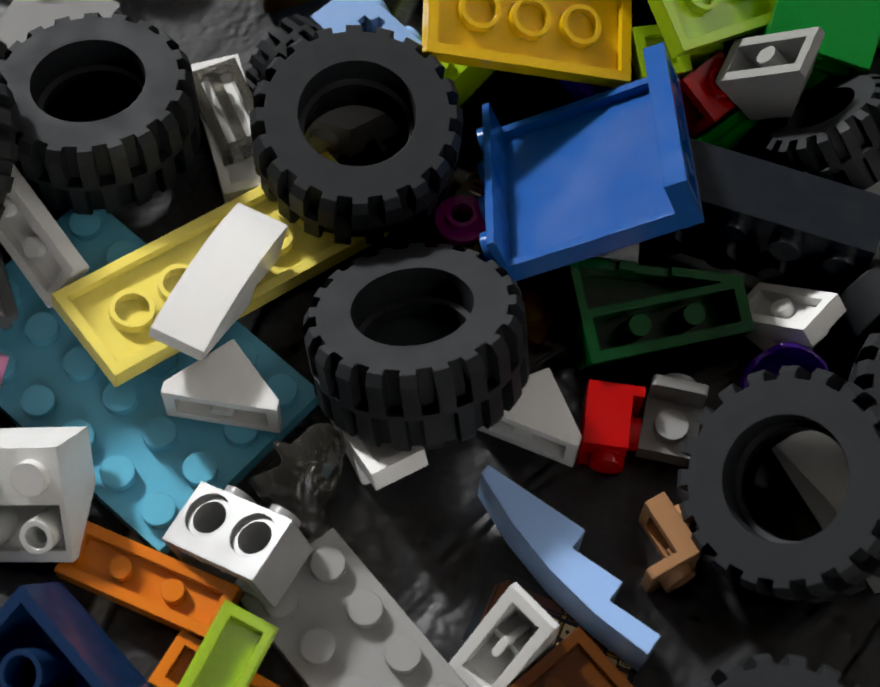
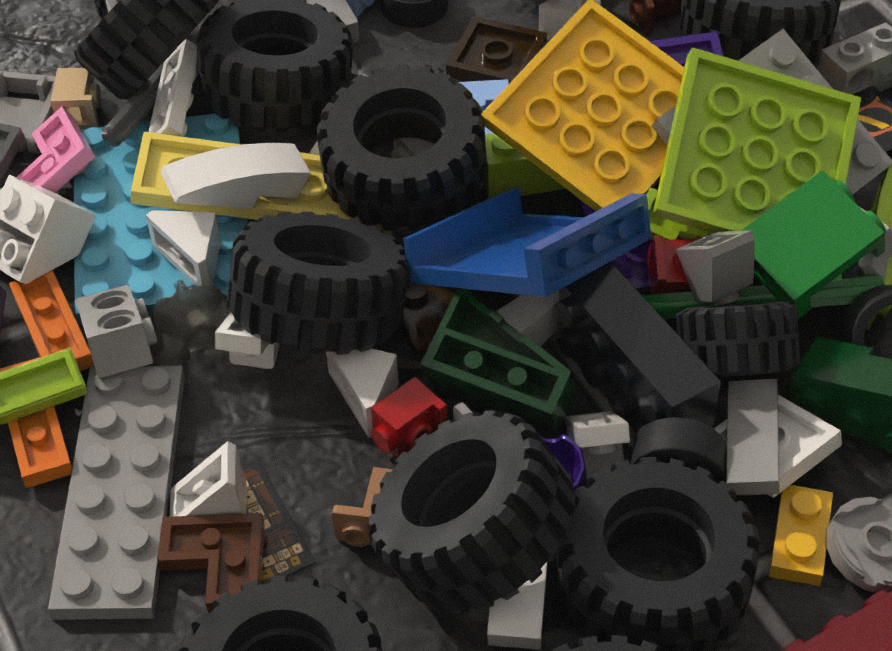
camera: 45 degrees right, 15 degrees down
(549, 550) = (292, 471): light blue slope -> none

